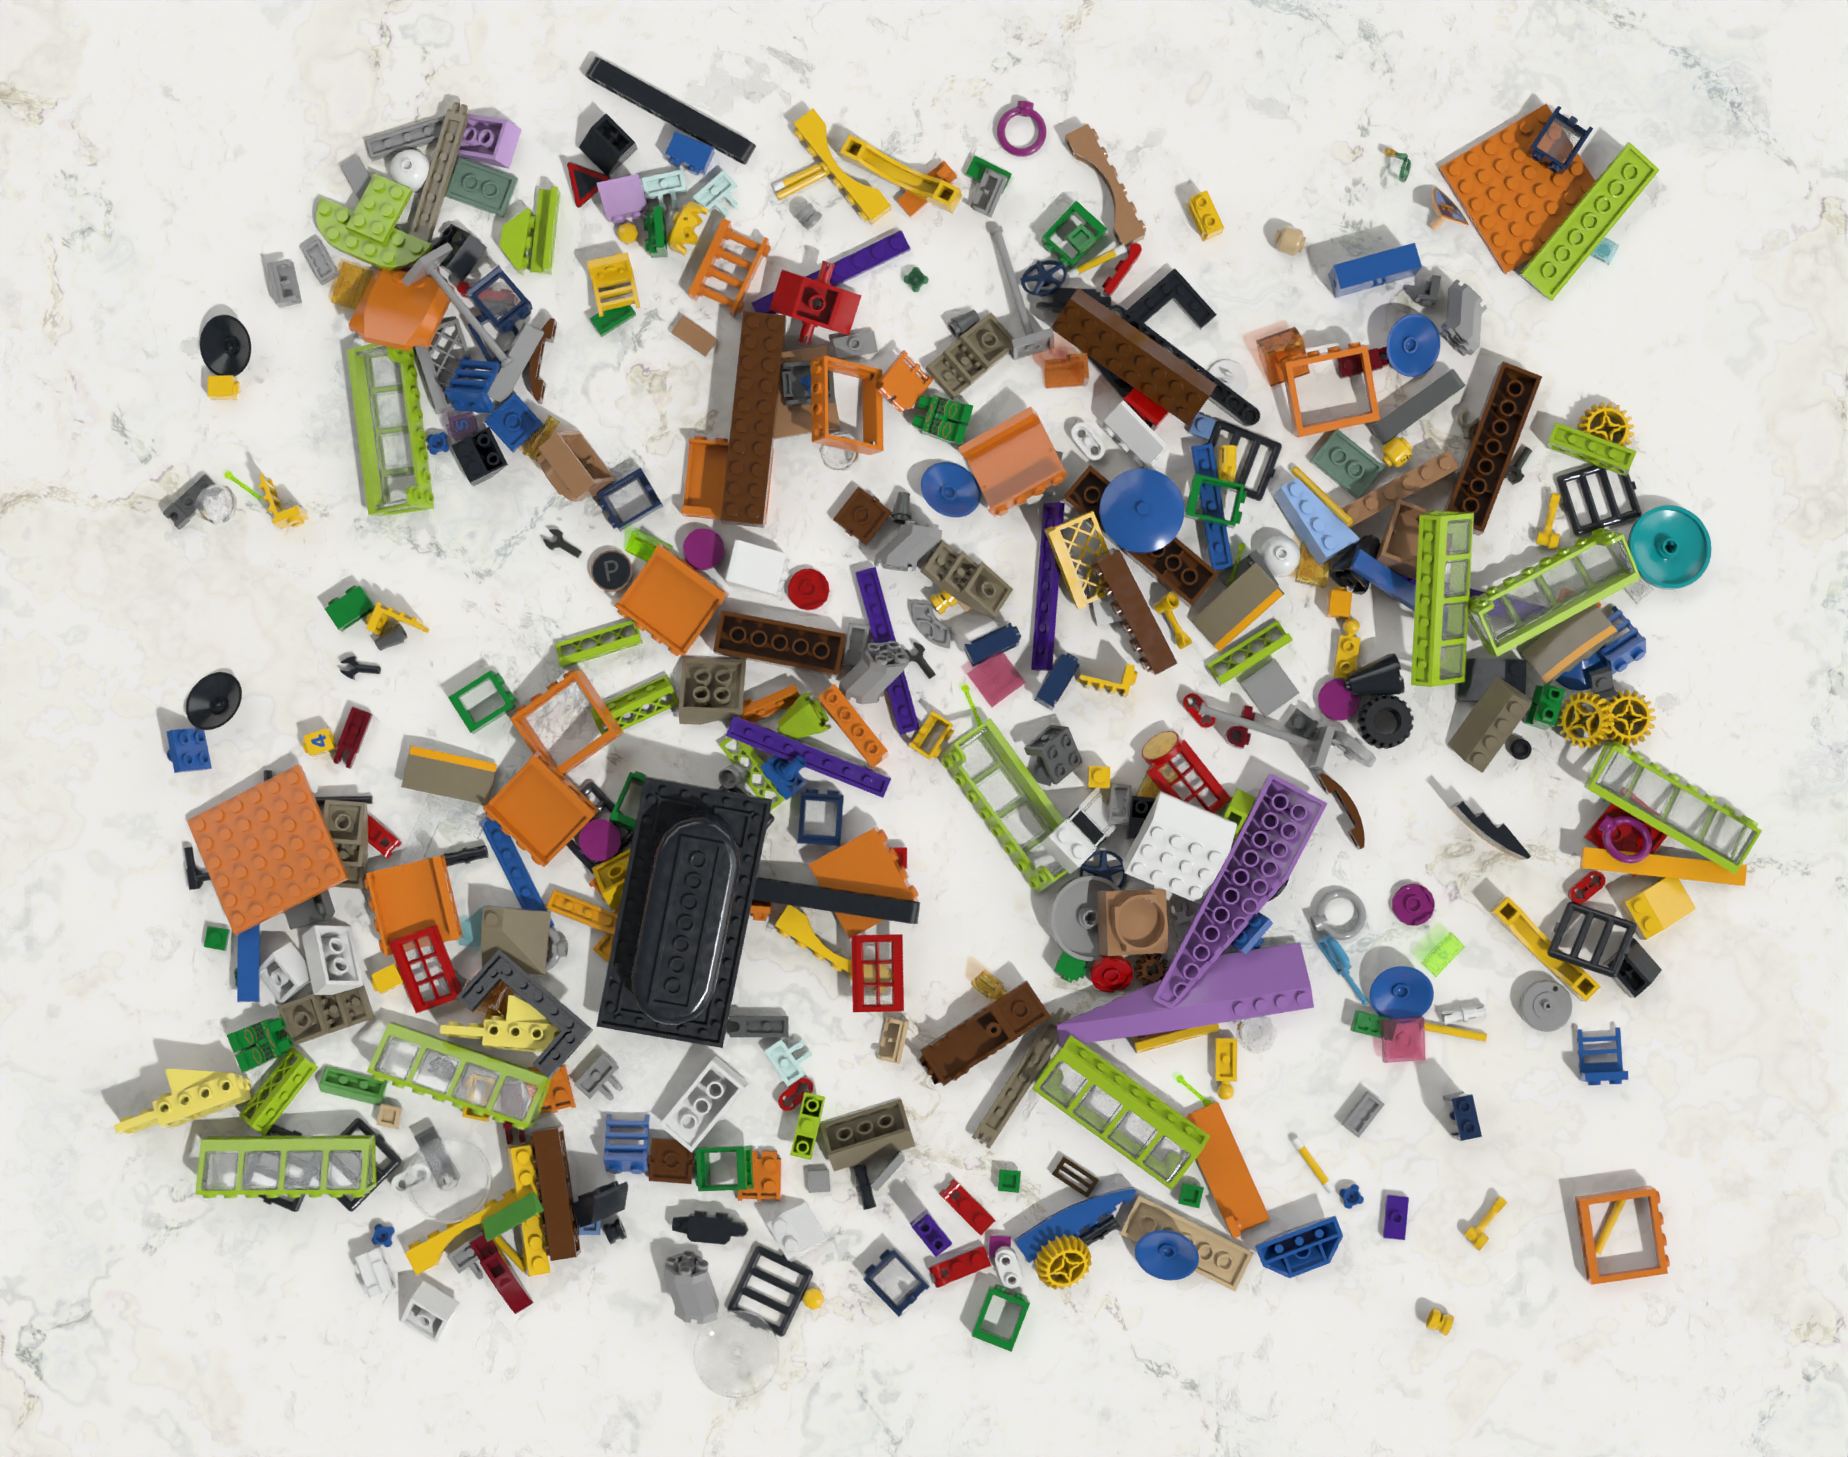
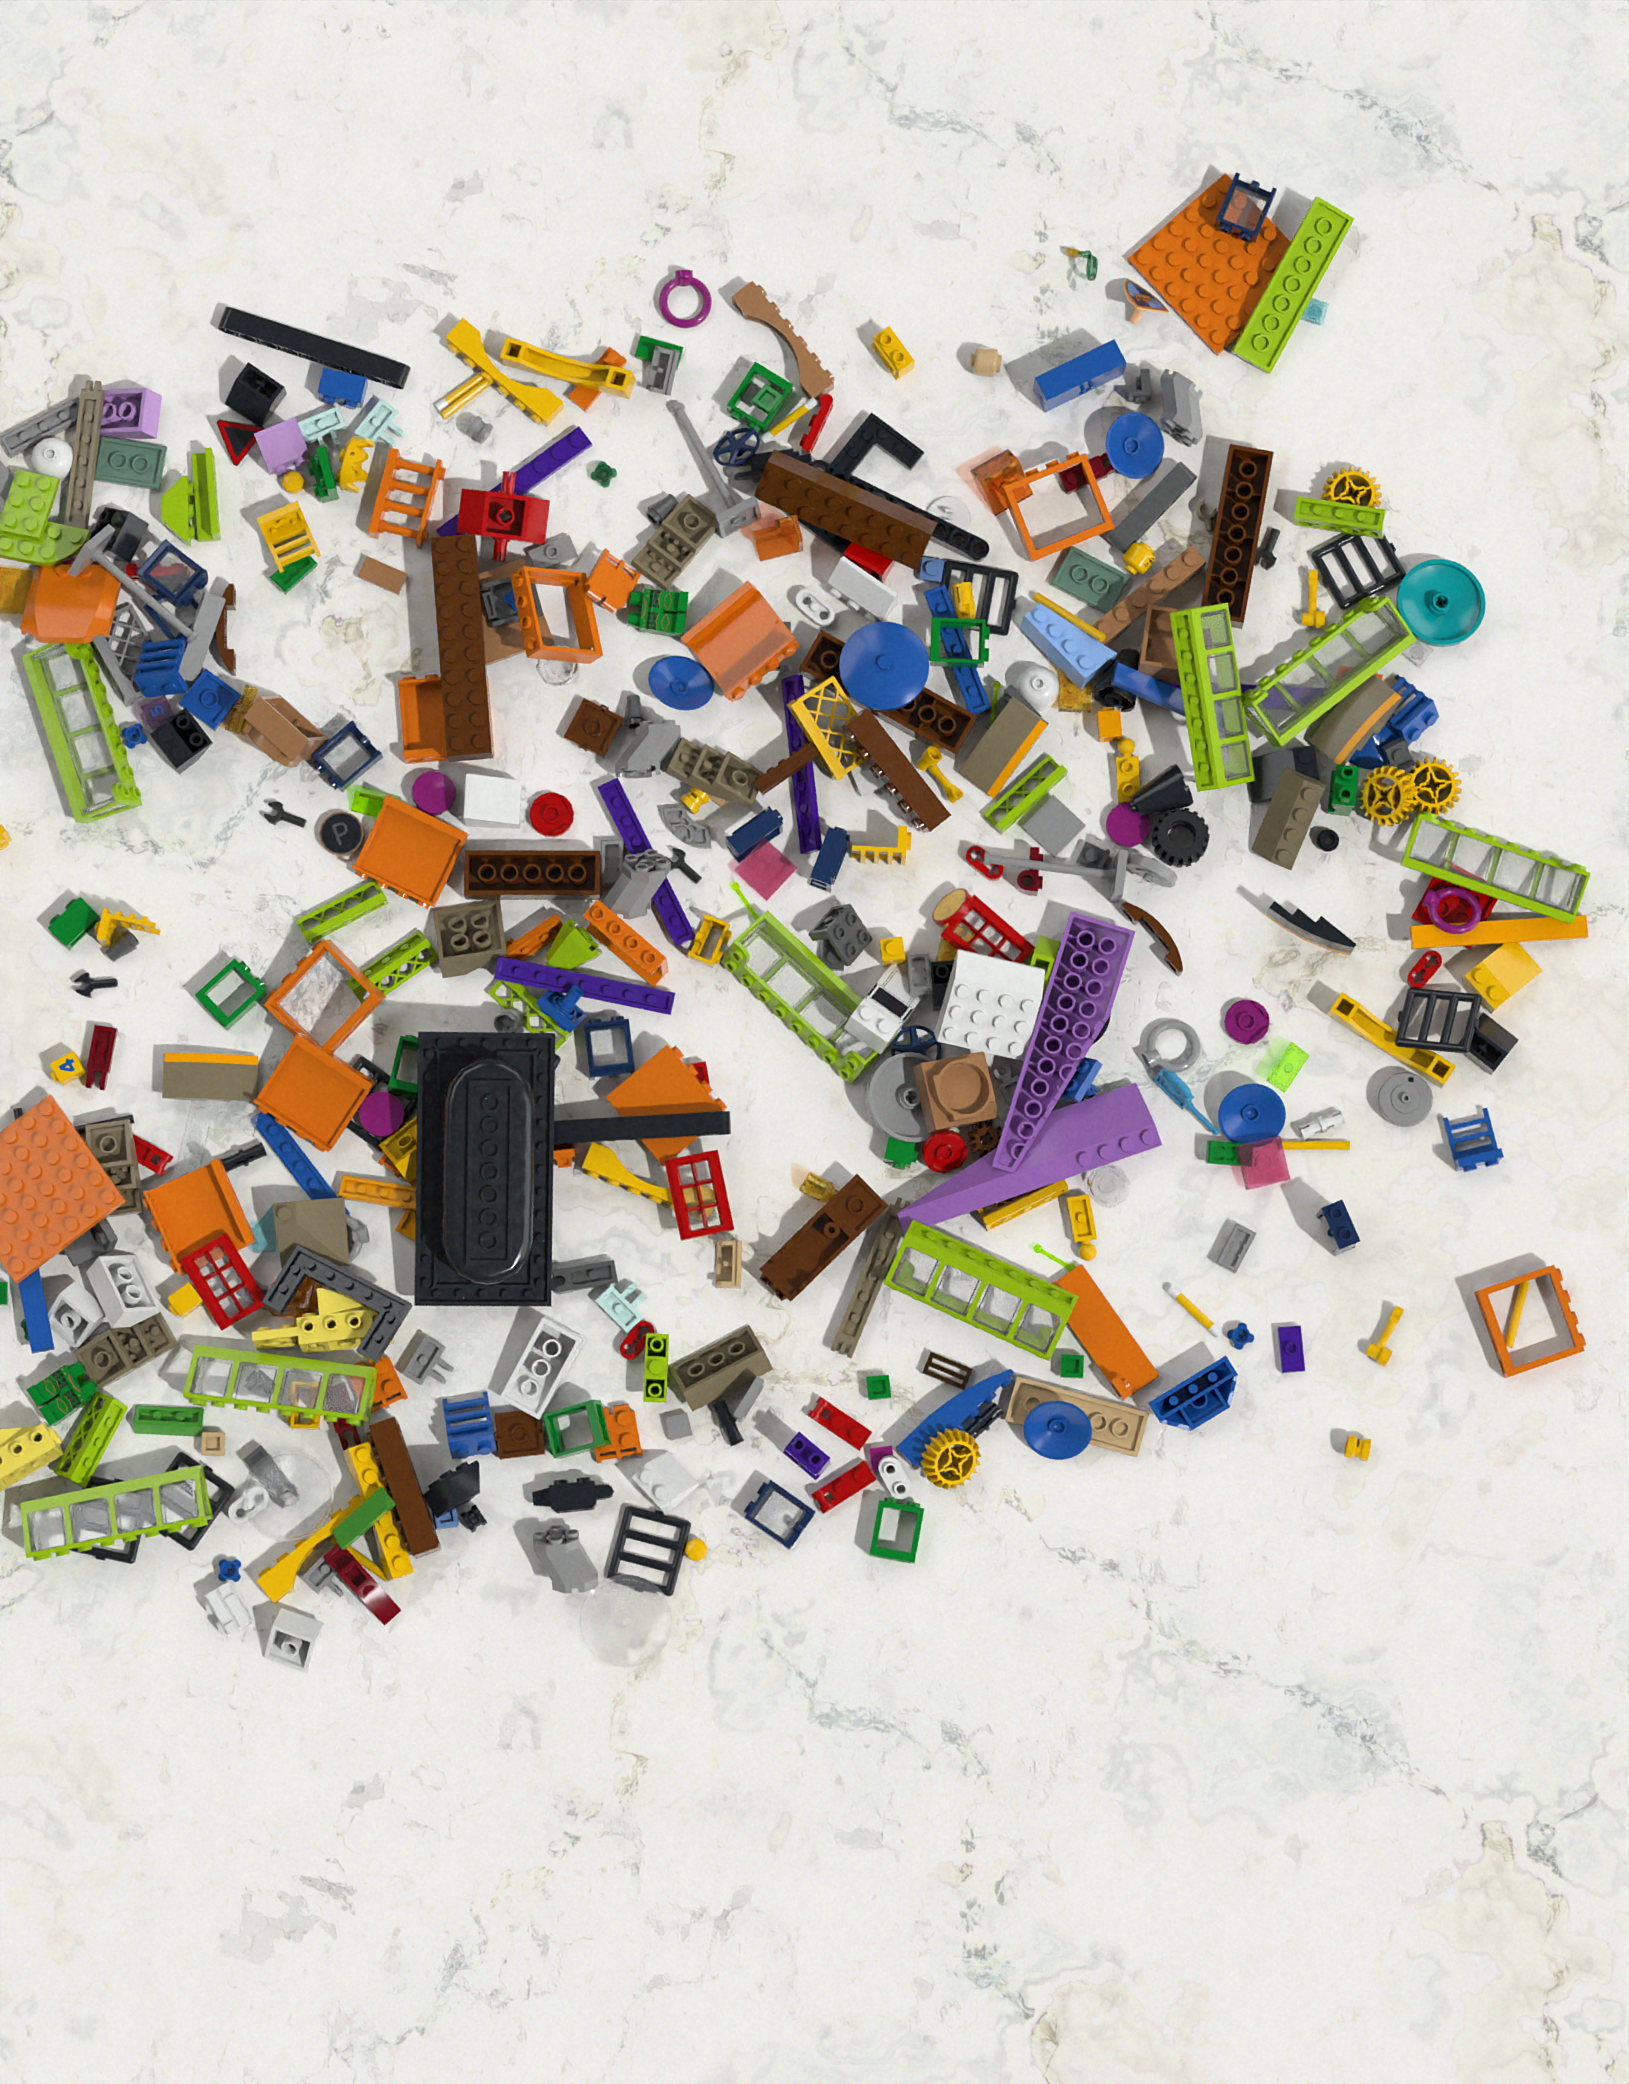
camera: 10 degrees left, 5 degrees down
(1033, 588) = (786, 768): none -> reddish brown piece

